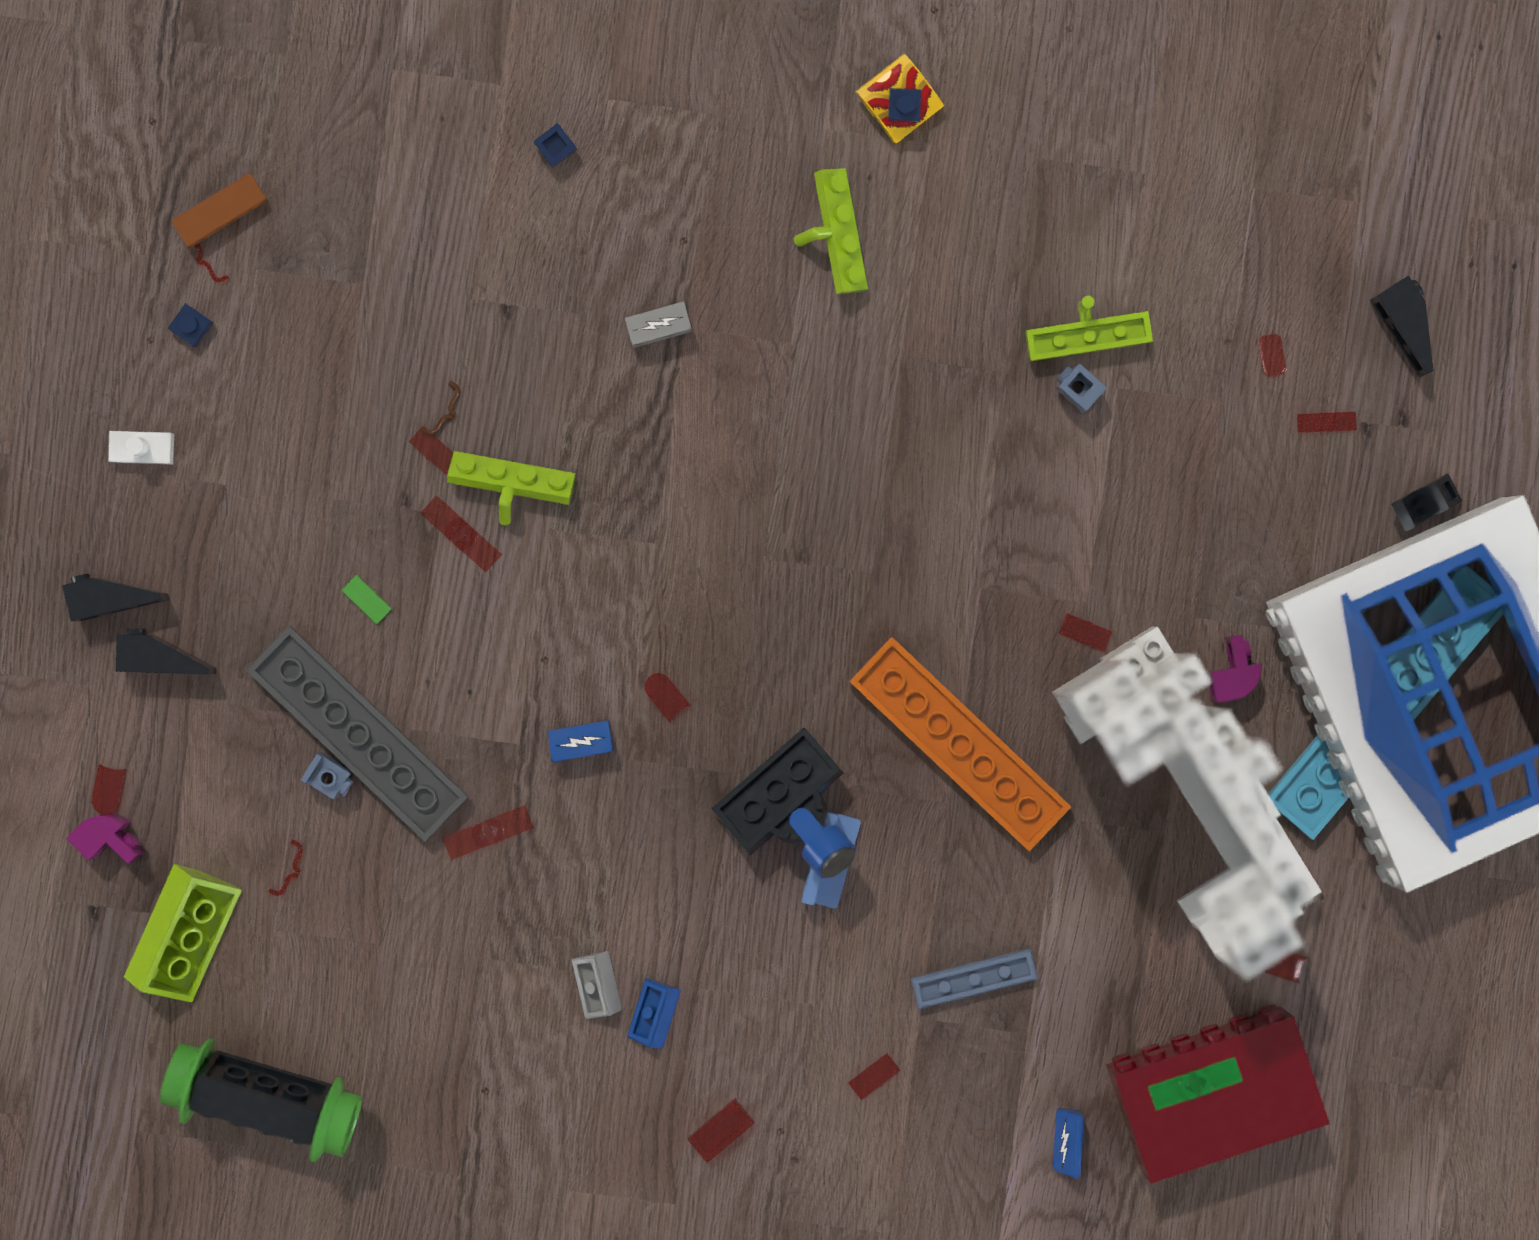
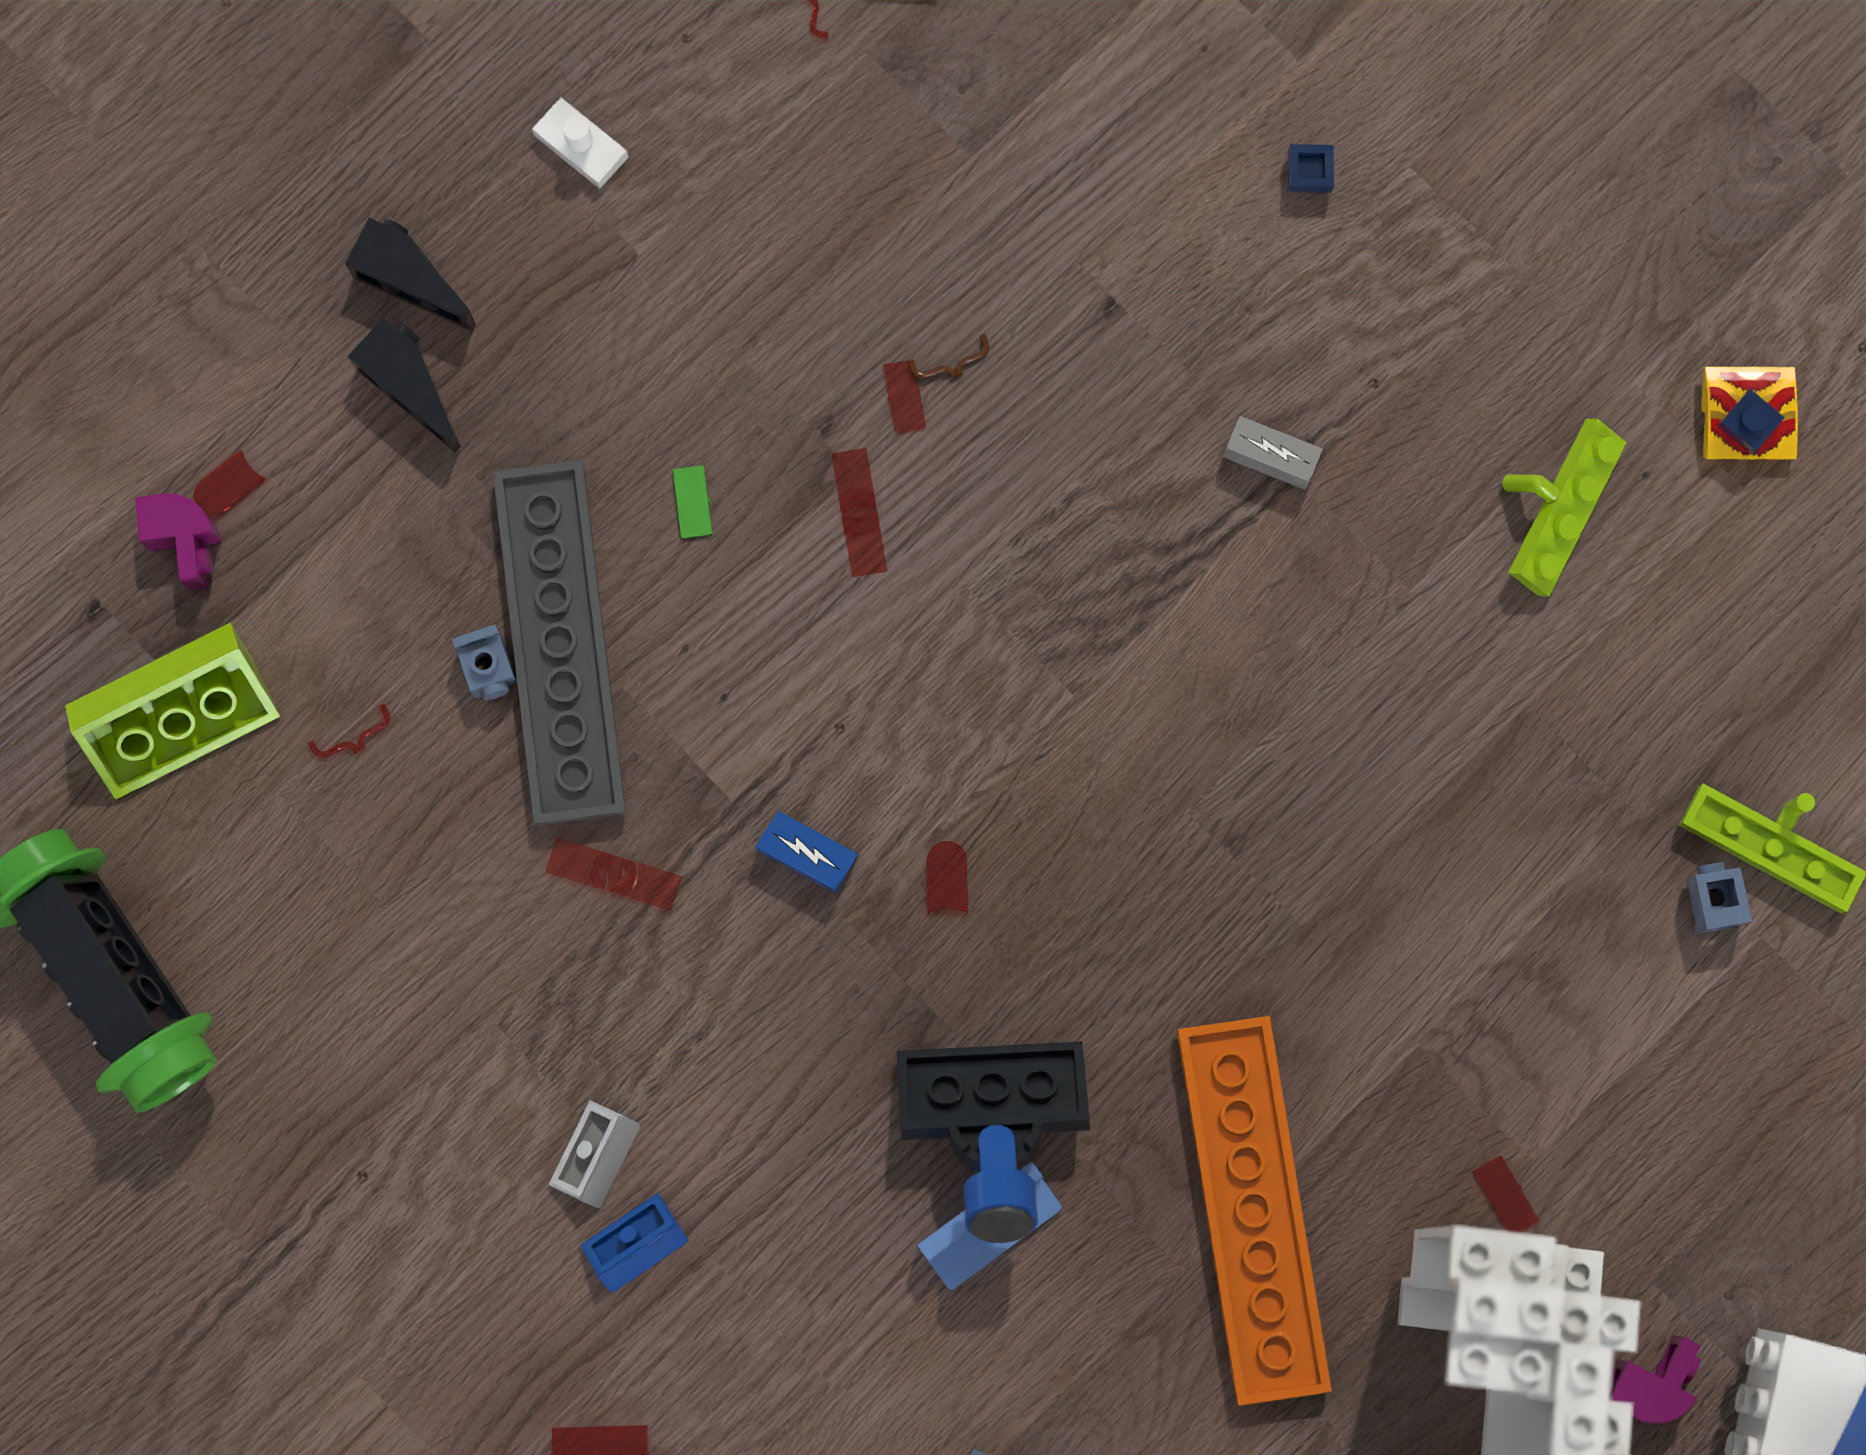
camera: 40 degrees right, 10 degrees down
(190, 325) = (744, 55): dark blue plate -> none
(510, 480) = (966, 492): lime plate -> none

